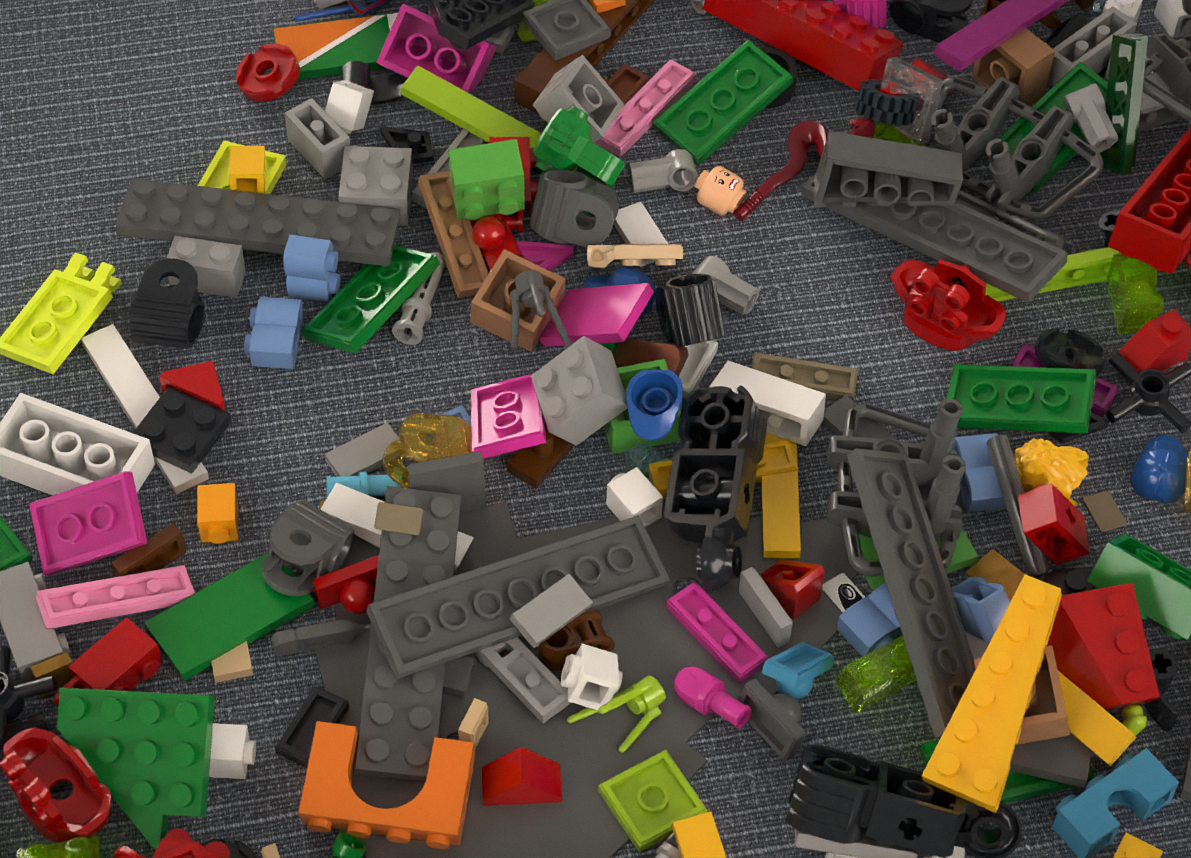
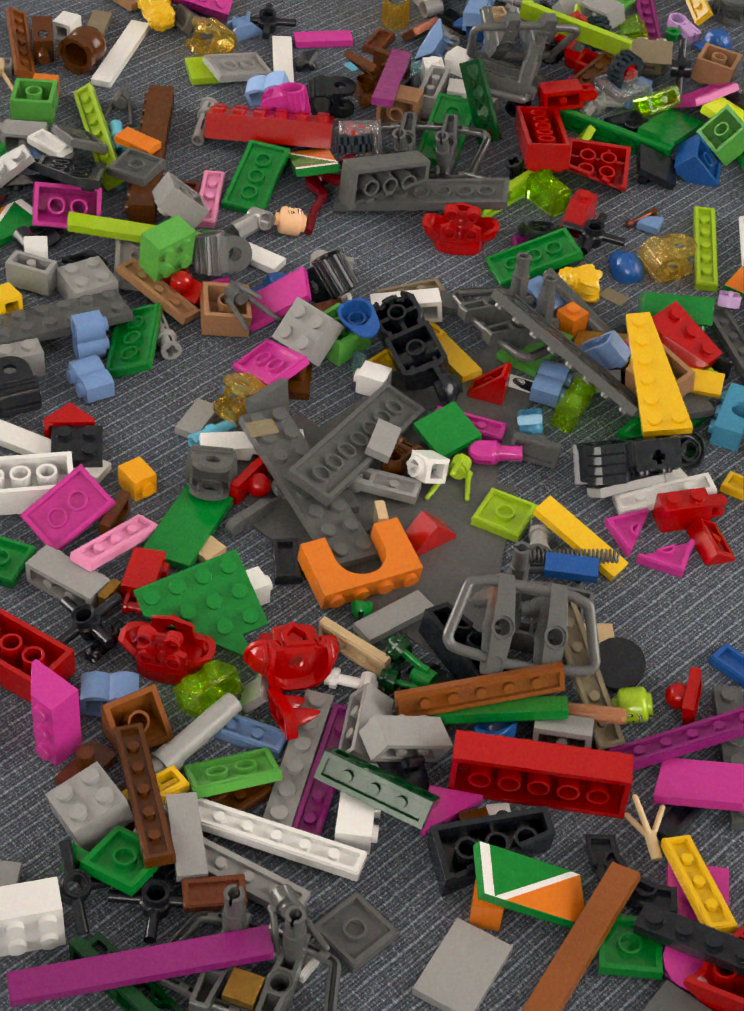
camera: 35 degrees left, 10 degrees down
(569, 145) = (201, 218): green piece -> none
(632, 254) = (271, 264): tan hinge -> none
(667, 631) = (447, 430): none -> green tile
(765, 607) = (487, 401): light grey tile -> none
(812, 108) = (313, 162): none -> green tile
(992, 528) = (572, 318): none -> orange brick
(1053, 524) = (603, 302): red brick -> none
(1091, 116) = (467, 114): light grey piece -> none

